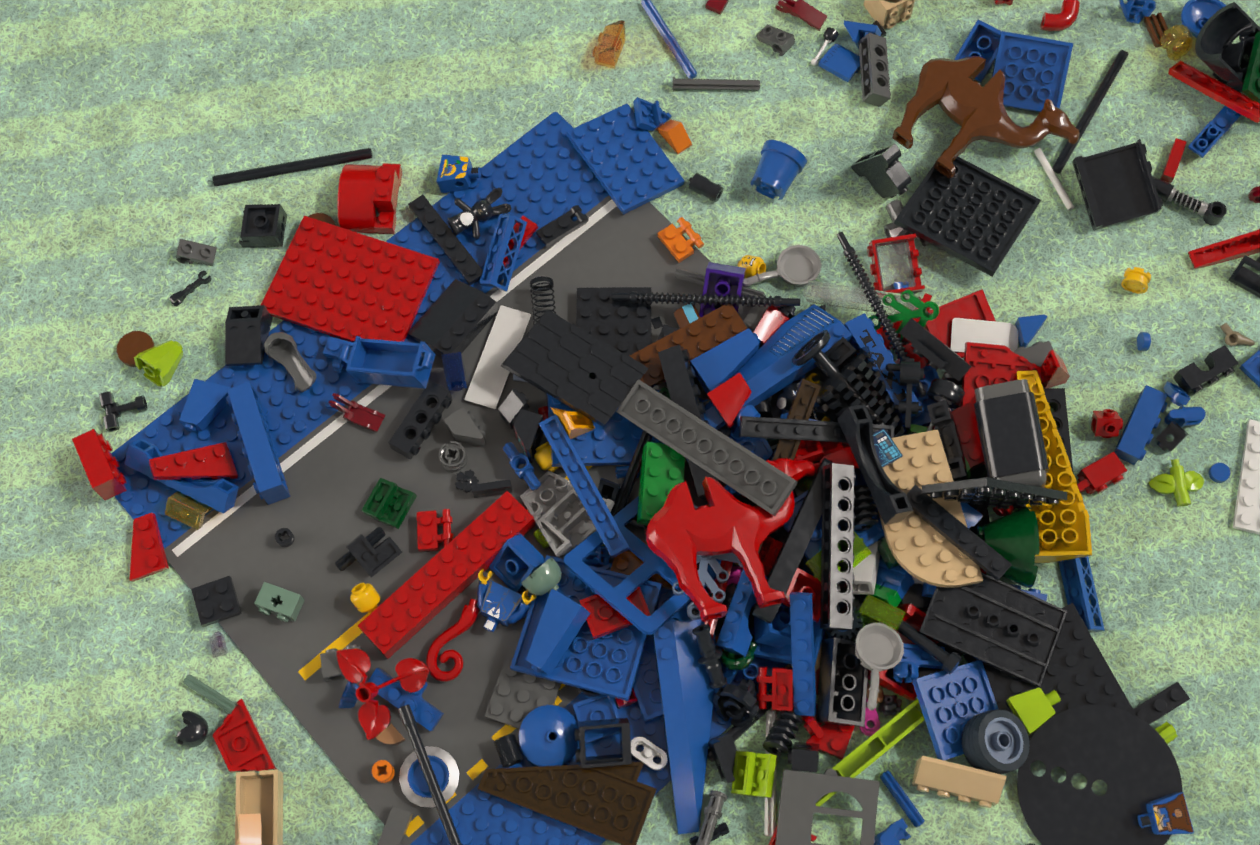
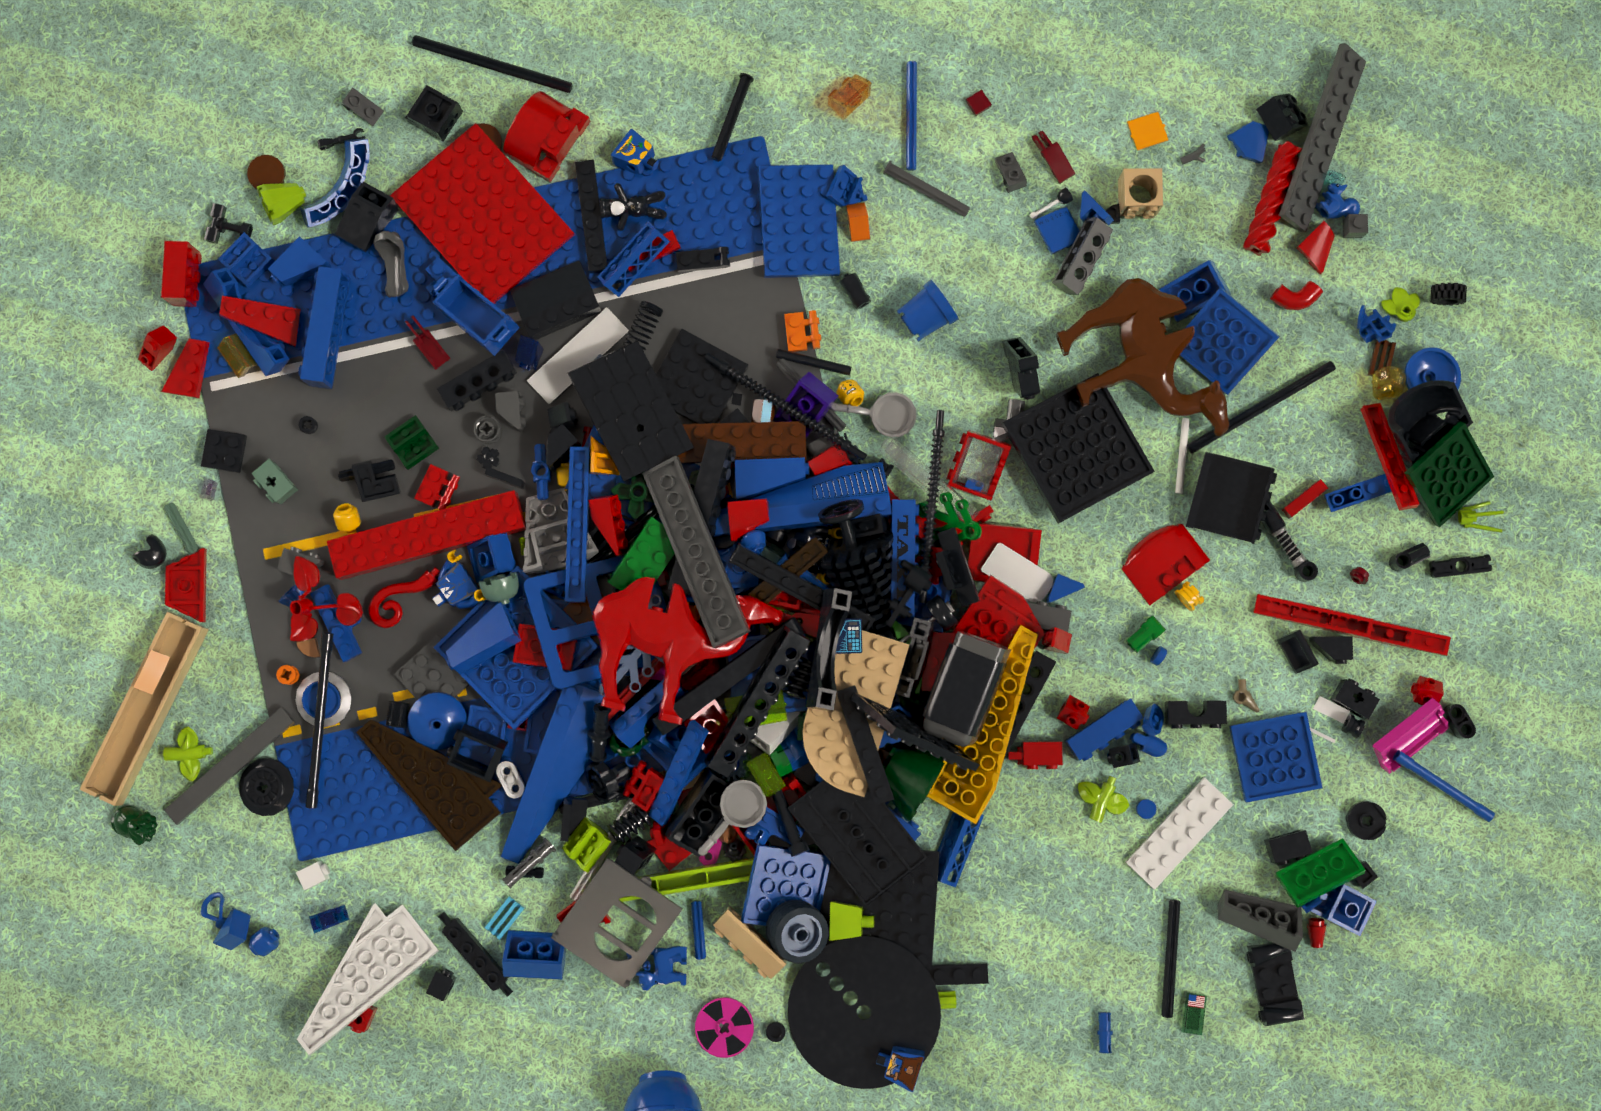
camera: 25 degrees right, 15 degrees up
(106, 543) = (156, 347): none -> red slope
(154, 425) = (246, 260): none -> blue slope
(215, 313) = (351, 177): none -> blue brick
(524, 124) = (732, 115): none -> black axle
(606, 466) = (608, 519): none -> red slope
(619, 434) = (626, 492): none -> dark green plant
(705, 258) = (813, 362): none -> black piece
(1095, 267) = (1163, 561): none -> red slope
(1122, 327) = (1149, 631): none -> green piece

